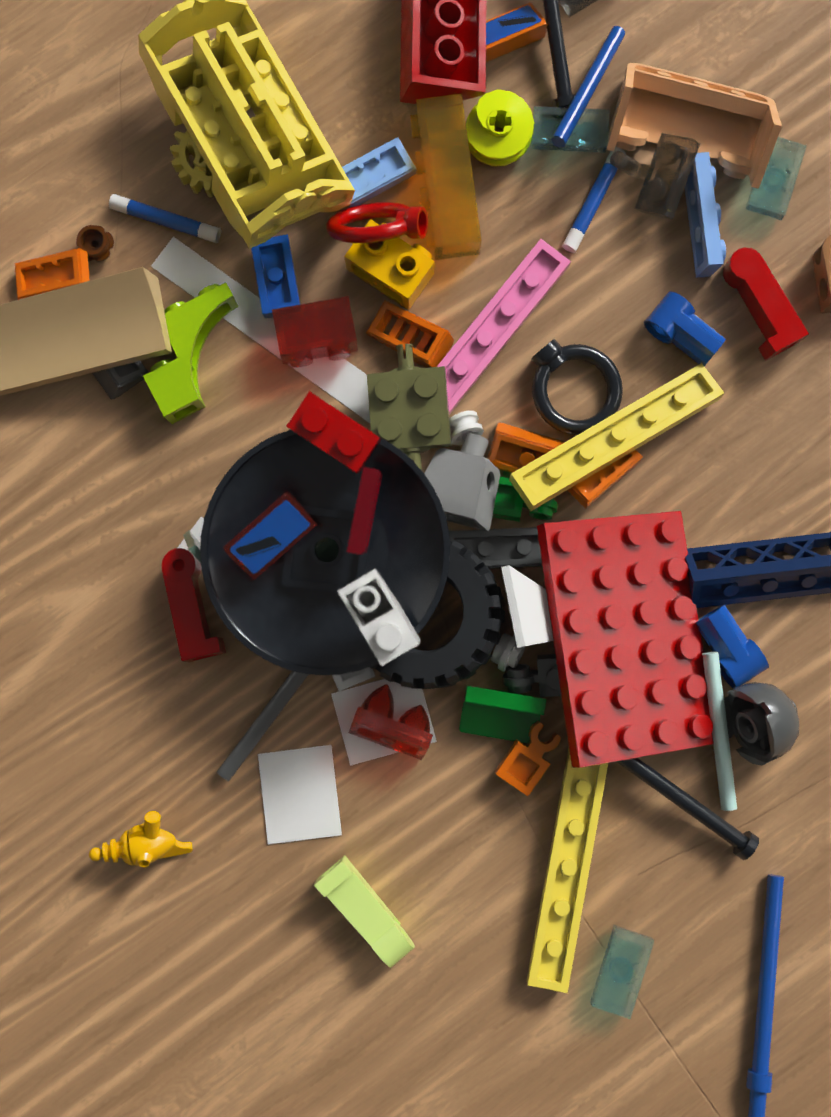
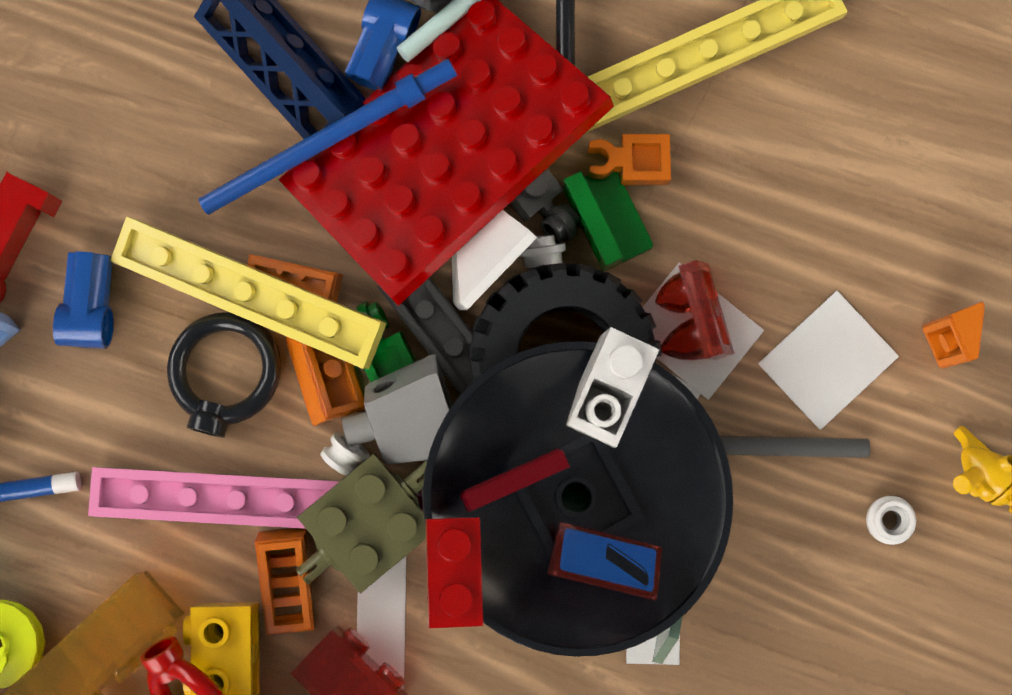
camera: 125 degrees left, 0 degrees up
(153, 759) = (905, 520): none -> white plate
(186, 606) = (729, 606): red leg -> none
(253, 889) = (956, 336): none -> orange slope
(365, 911) = (893, 215): yellowish green leg -> none
(680, 635) = (408, 92): none -> blue bar

